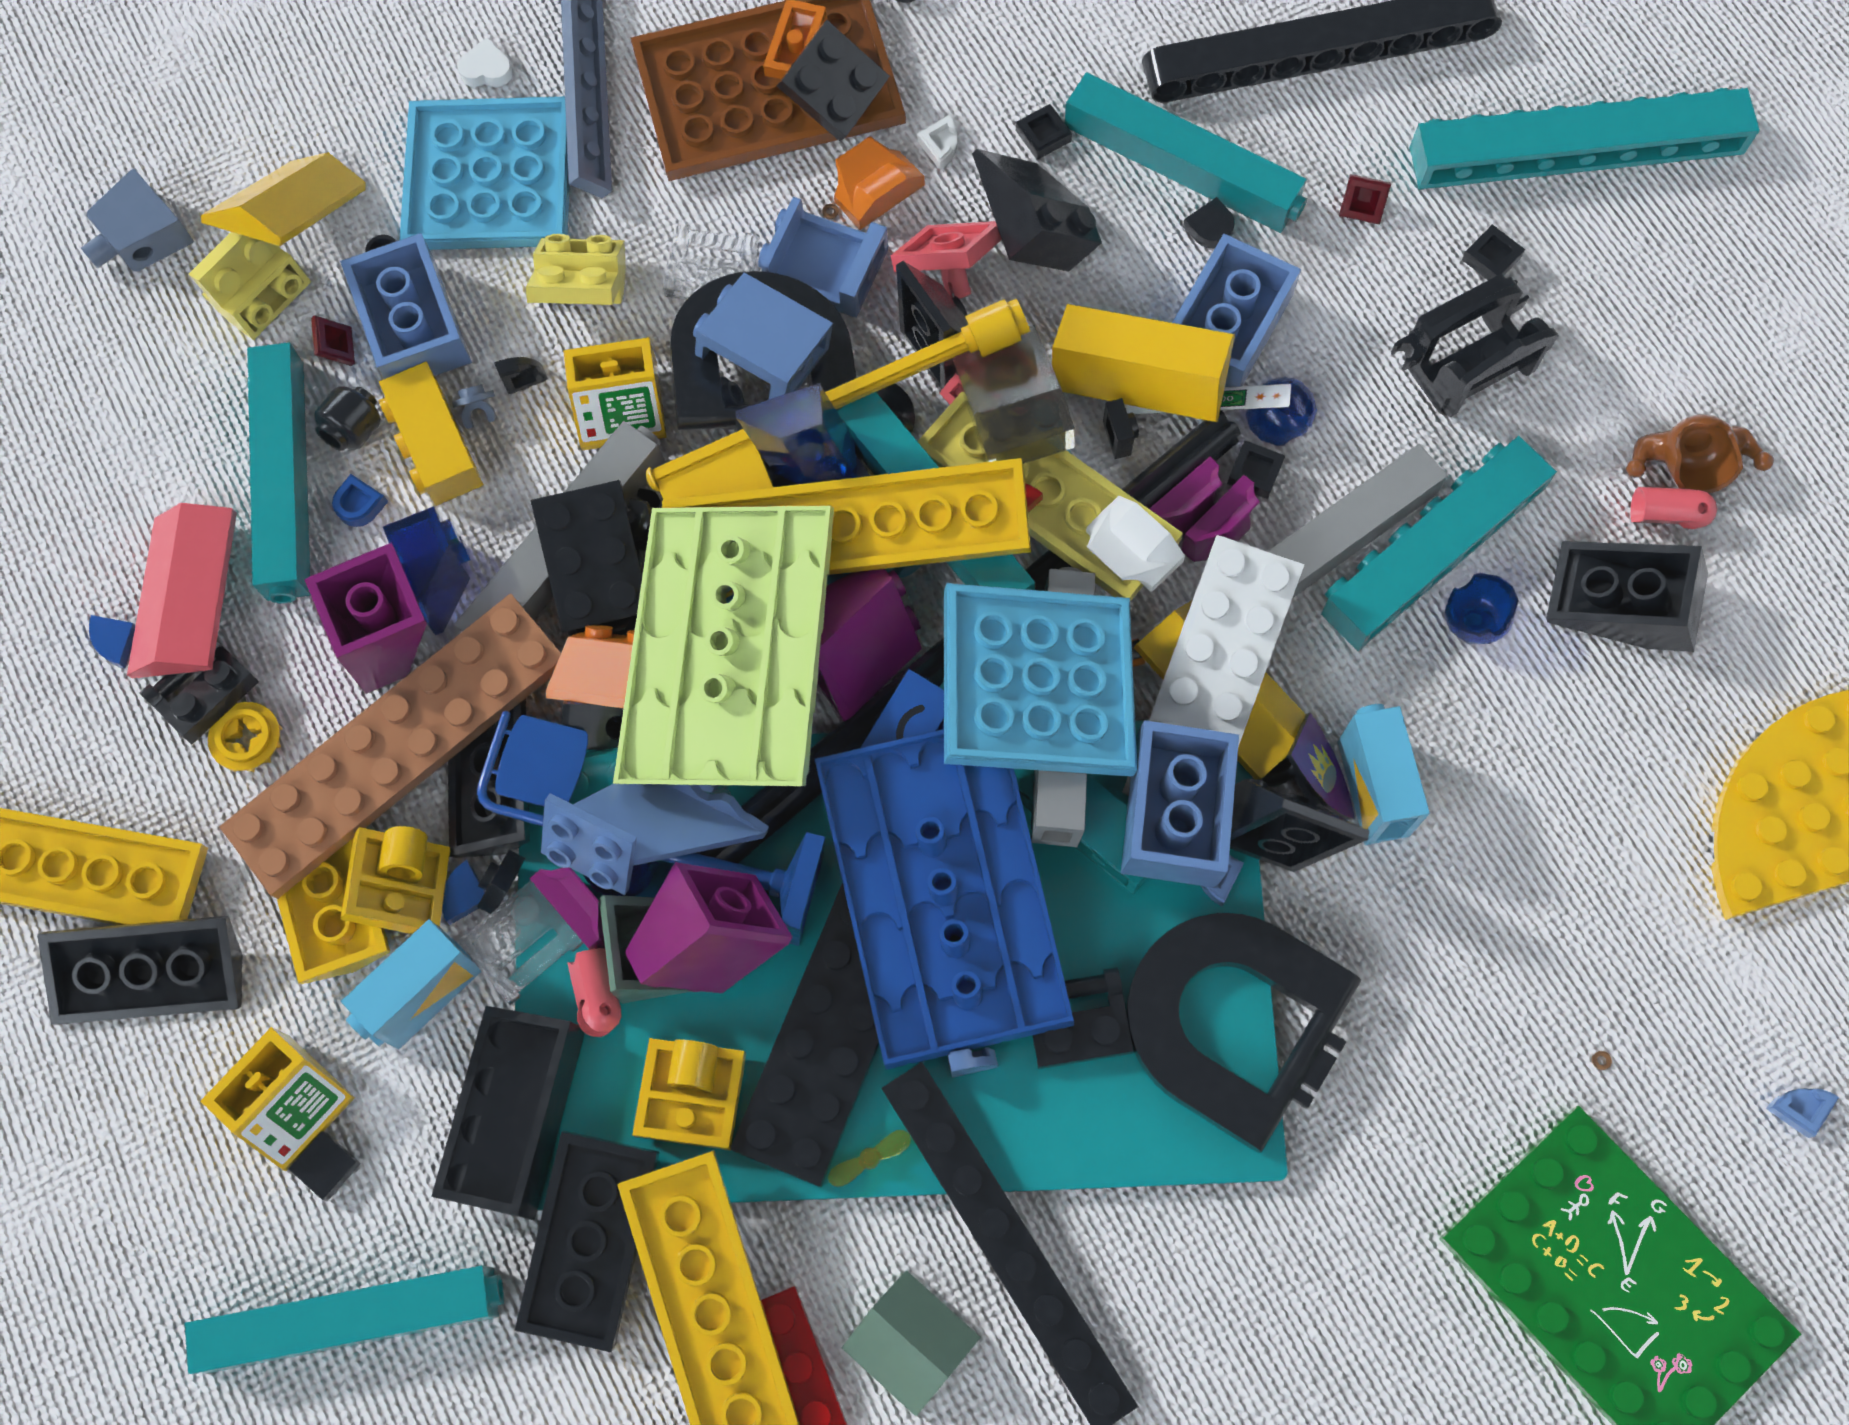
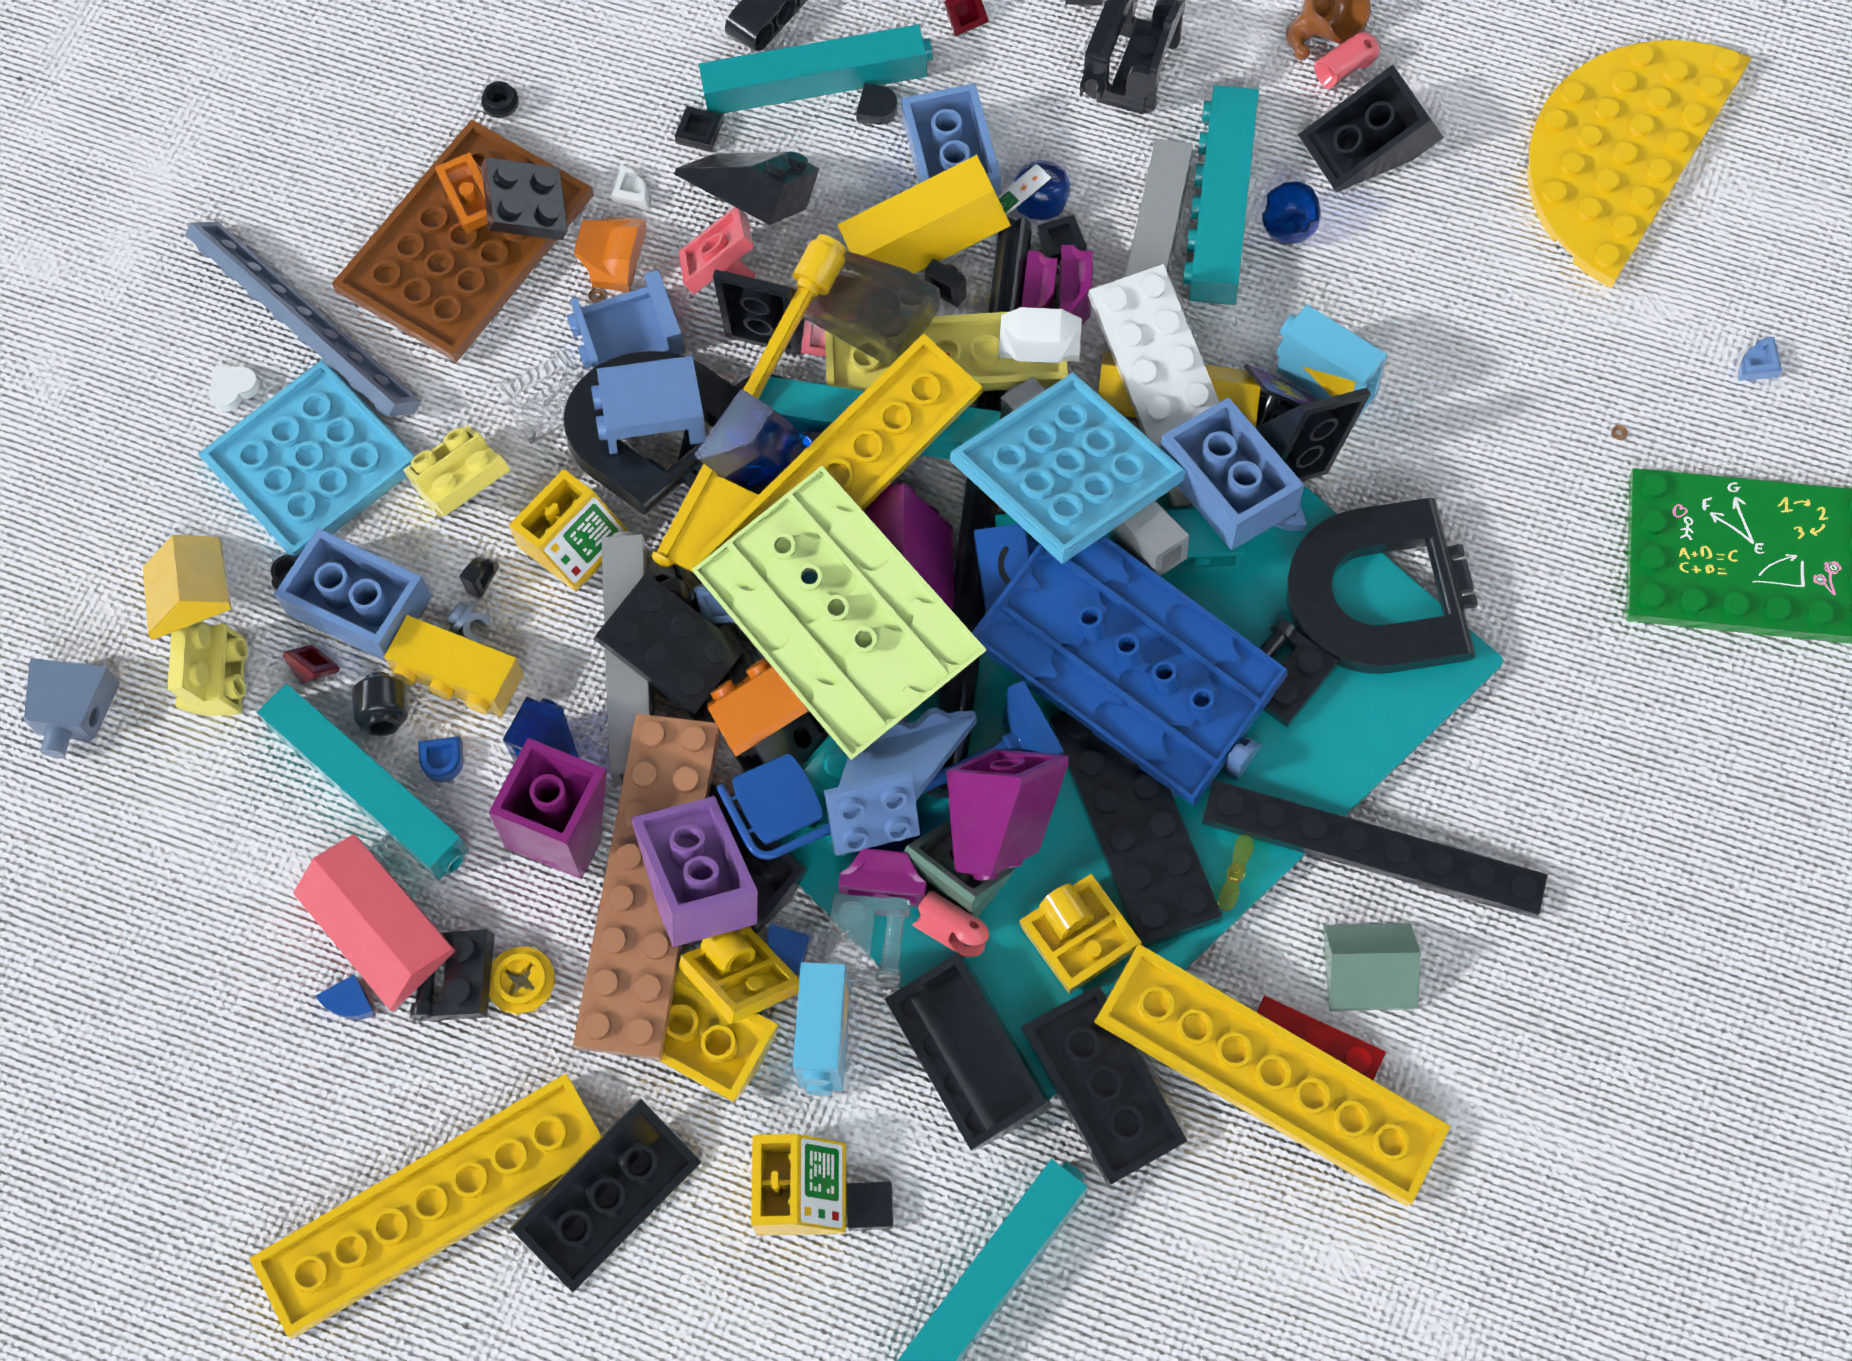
camera: 40 degrees left, 5 degrees down
(423, 766) = (696, 871): none -> medium lavender slope
(498, 881) = (812, 913): black plate -> none

